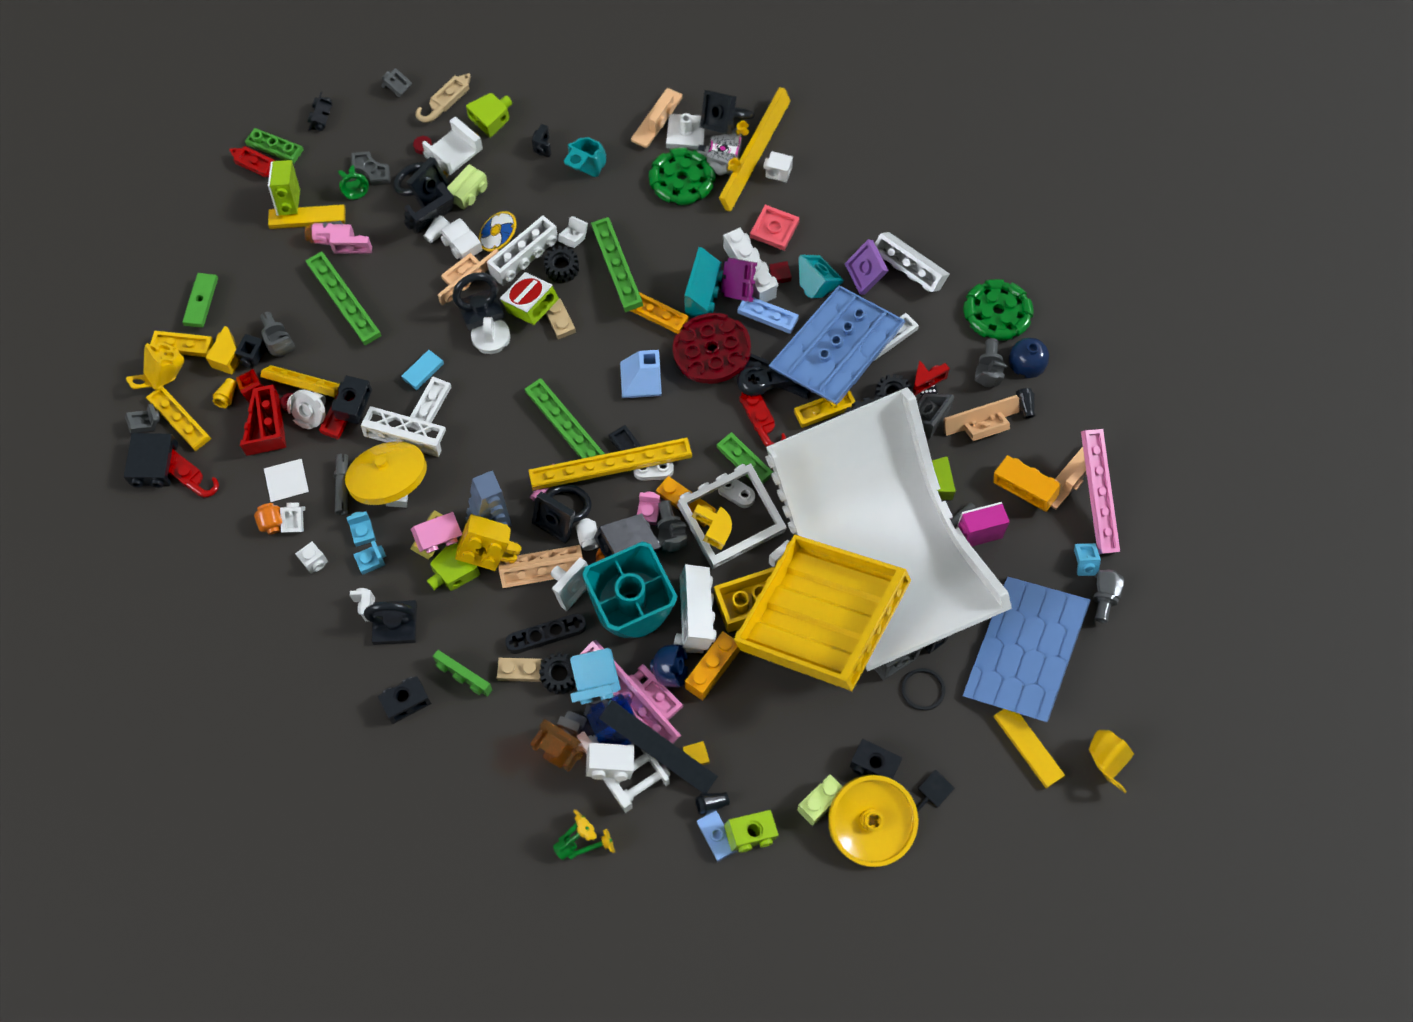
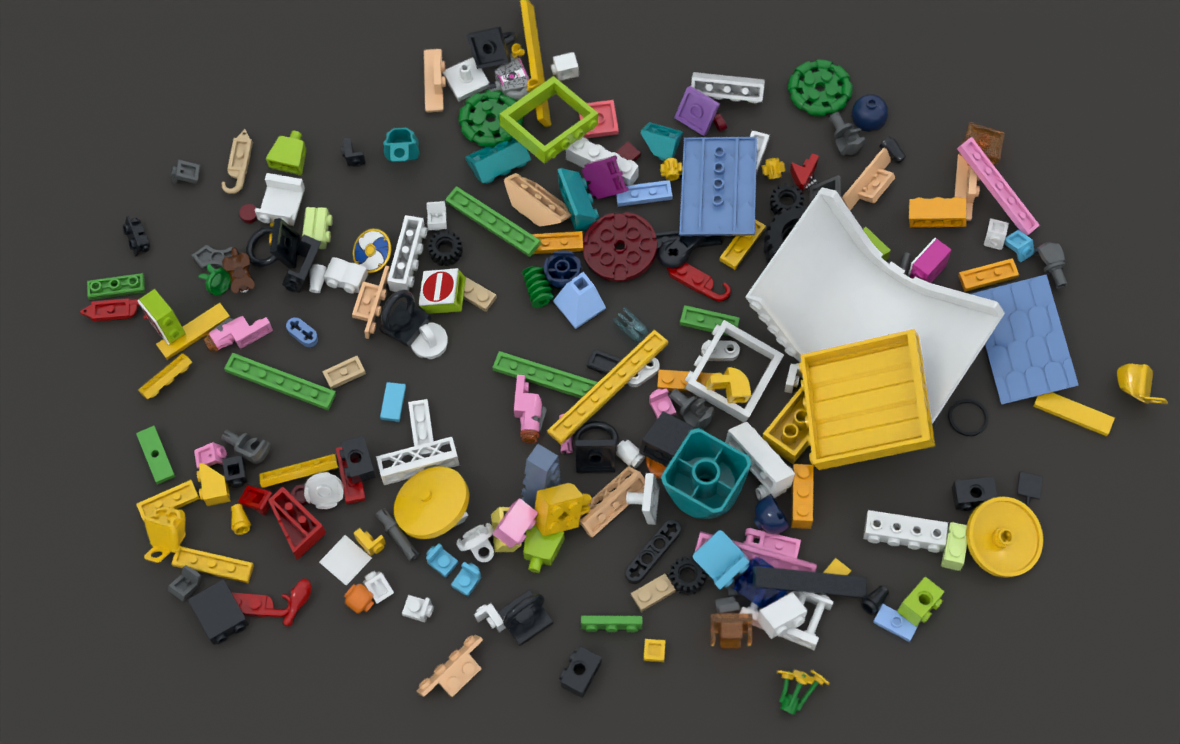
camera: 30 degrees left, 0 degrees up
(221, 487) = (299, 596): none -> red piece
(243, 325) = (210, 454): none -> bright pink bracket
(255, 241) = (165, 376): none -> yellow plate
(301, 632) = (456, 671): none -> light nougat bracket
(311, 476) = (366, 539): none -> yellow bracket
(374, 187) = (238, 268): none -> reddish brown animal
(393, 267) = (304, 329): none -> medium blue beam
(399, 529) = (476, 539): none -> white tile
(400, 320) = (344, 372): none -> tan plate
(481, 721) = (654, 650): none -> yellow plate
(528, 442) = (529, 410): none -> bright pink plate
(614, 341) = (537, 286): none -> green piece
(644, 336) = (562, 268): none -> dark blue cylinder
(661, 214) = (497, 160): none -> teal slope
(665, 265) = (535, 201): none -> light nougat wedge
(671, 422) = (633, 327): none -> clear light blue arm
(723, 177) = (534, 99): none -> lime window
(784, 756) = (905, 531): none -> white brick
(806, 306) = (671, 169): none -> yellow gear
(882, 289) = (719, 122): none -> dark red tile
(901, 356) = (773, 168): none -> yellow gear
(1036, 569) = (988, 275): none -> light orange plate
(1071, 534) = (996, 234): none -> white bracket
(1119, 443) = (988, 140): none -> clear orange panel

